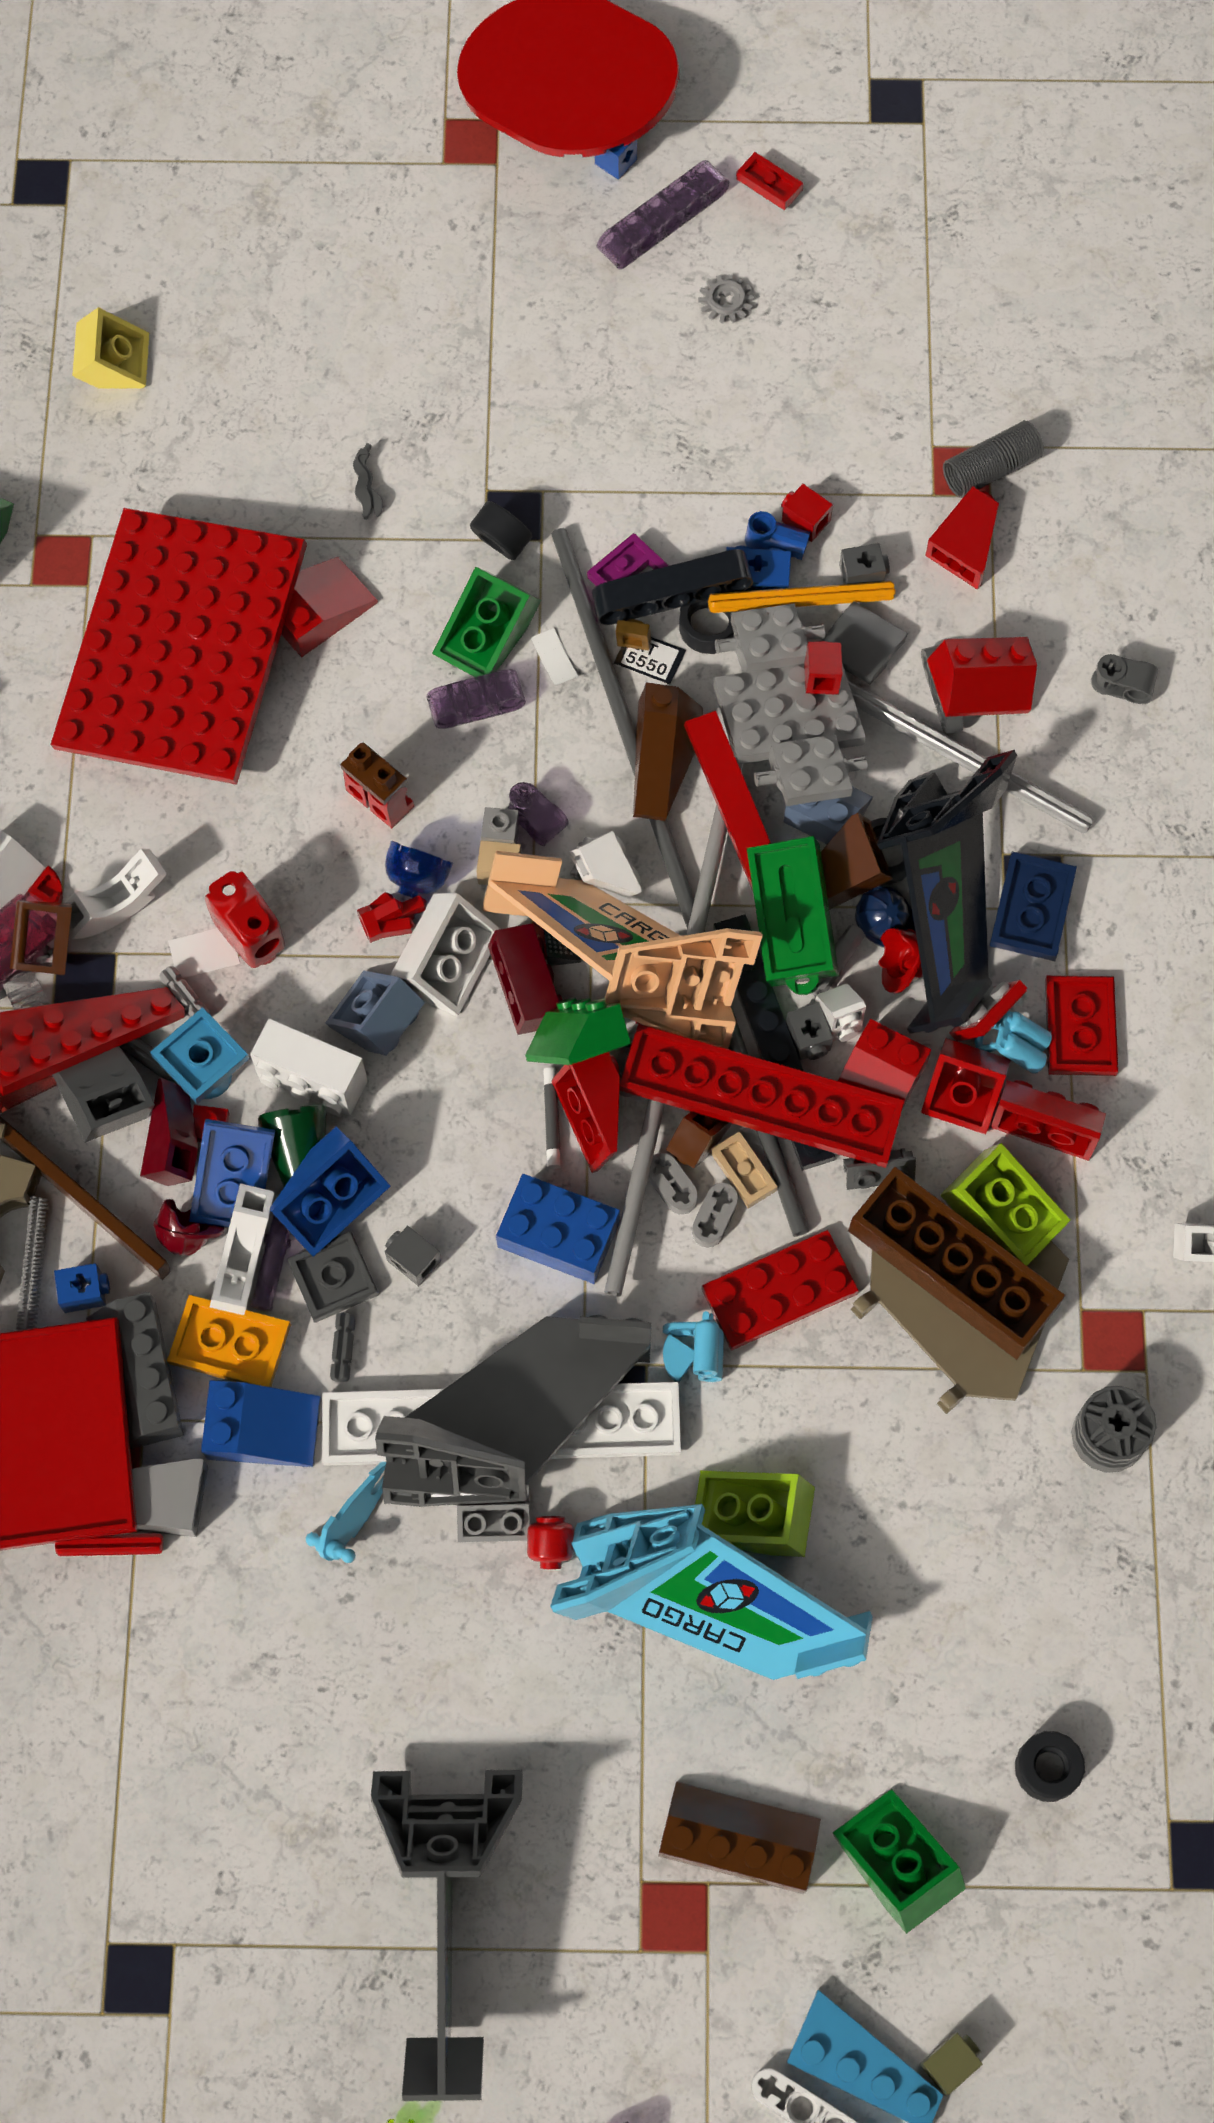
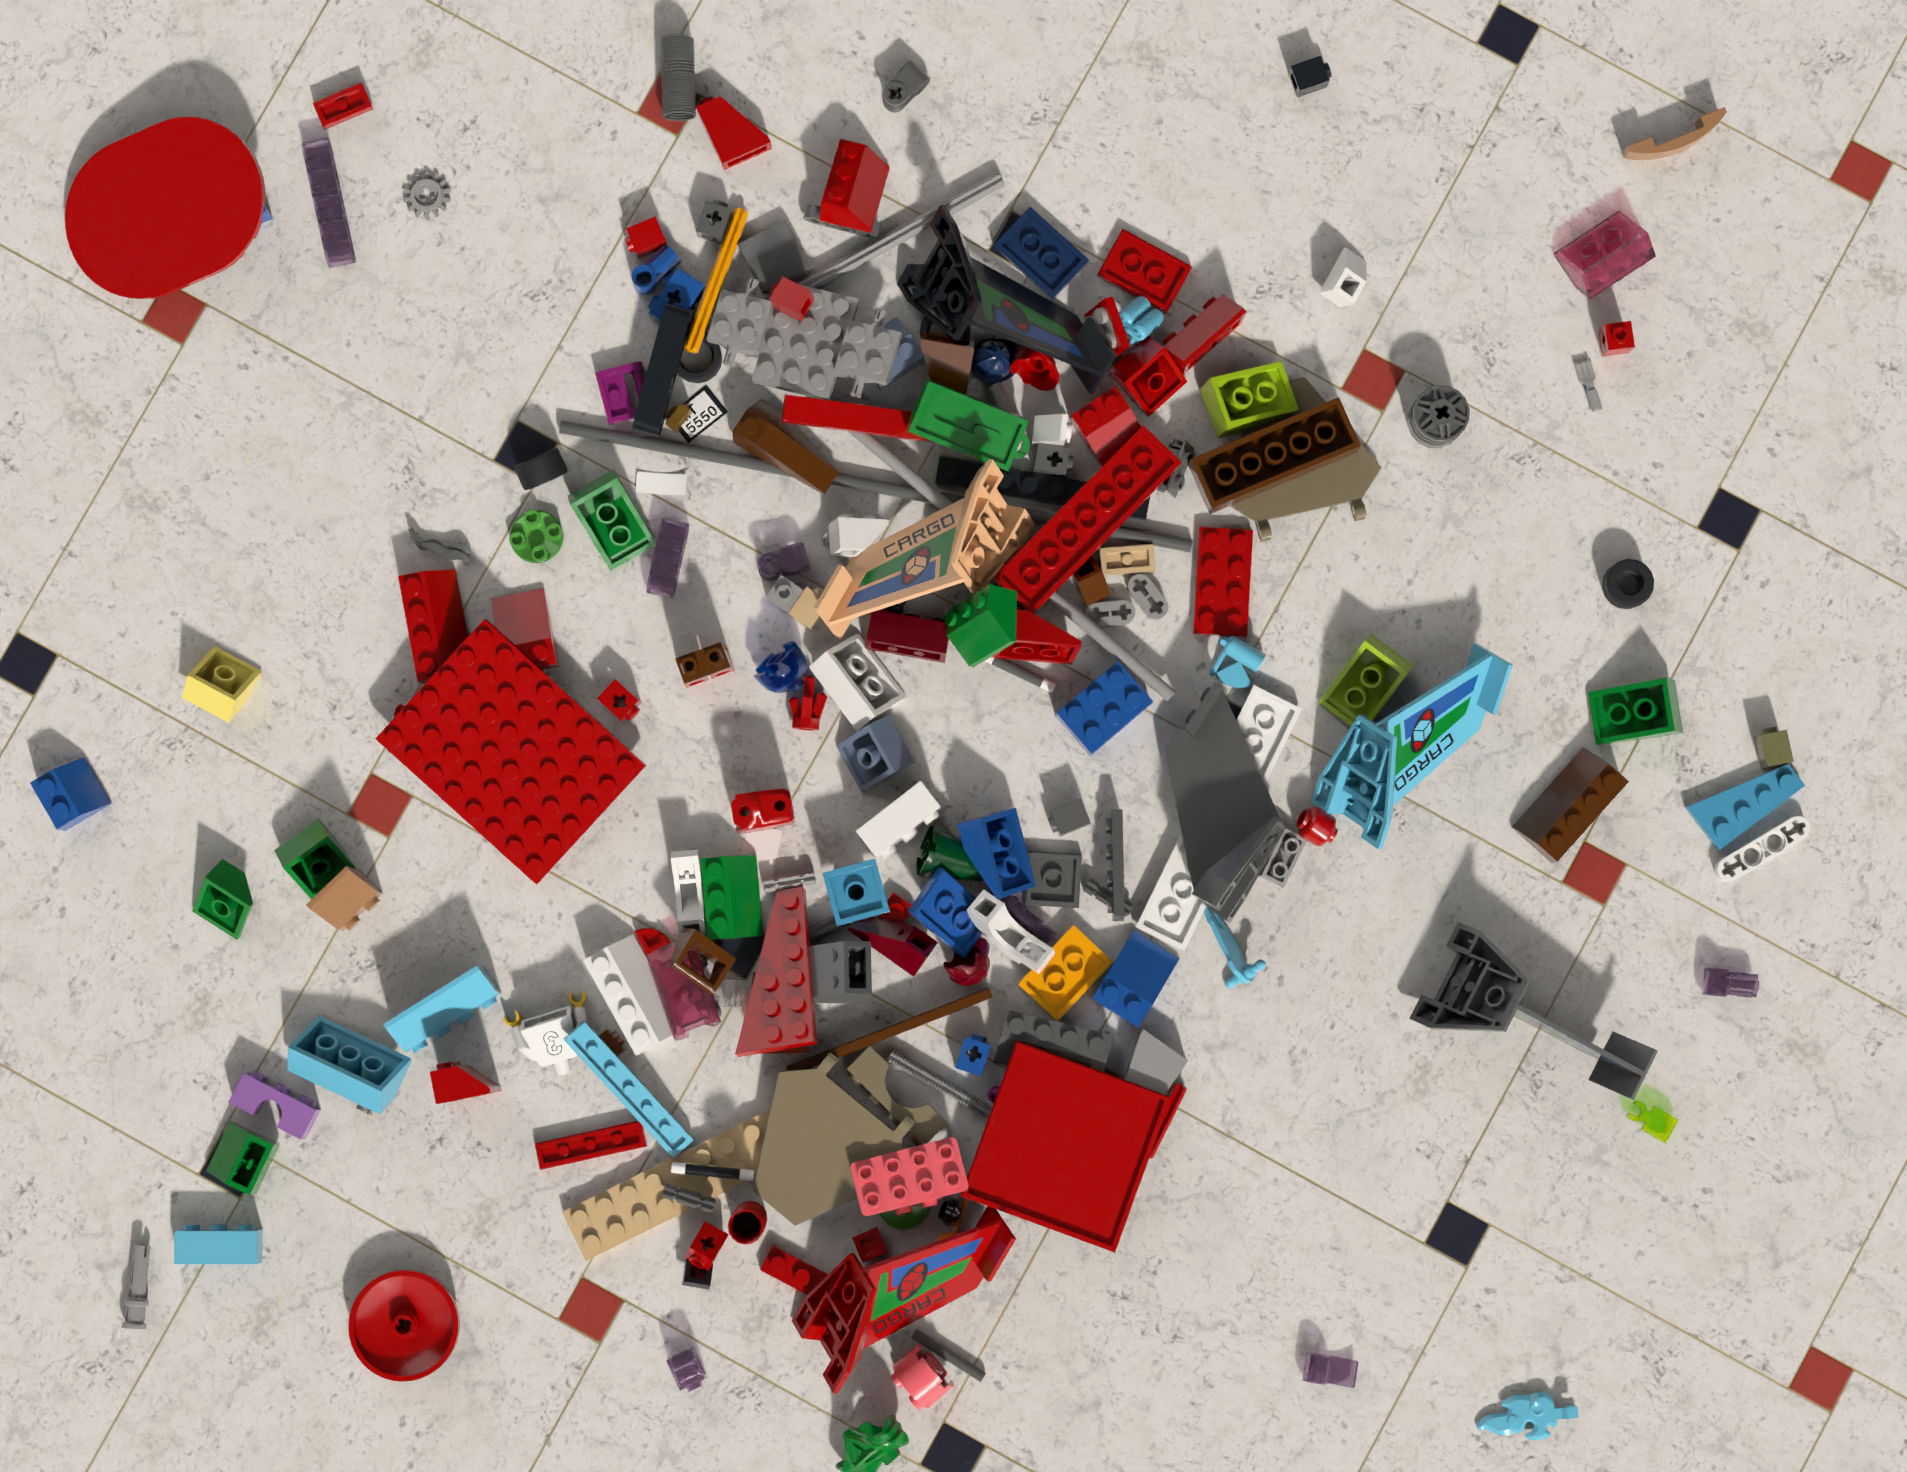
camera: 65 degrees left, 15 degrees up
(134, 942) = (731, 897): none -> green slope
(291, 502) = (432, 618): none -> red slope
(293, 726) = (617, 690): none -> red brick
(370, 1337) = (1115, 876): none -> dark grey plate
(427, 565) = (536, 536): none -> bright green dish

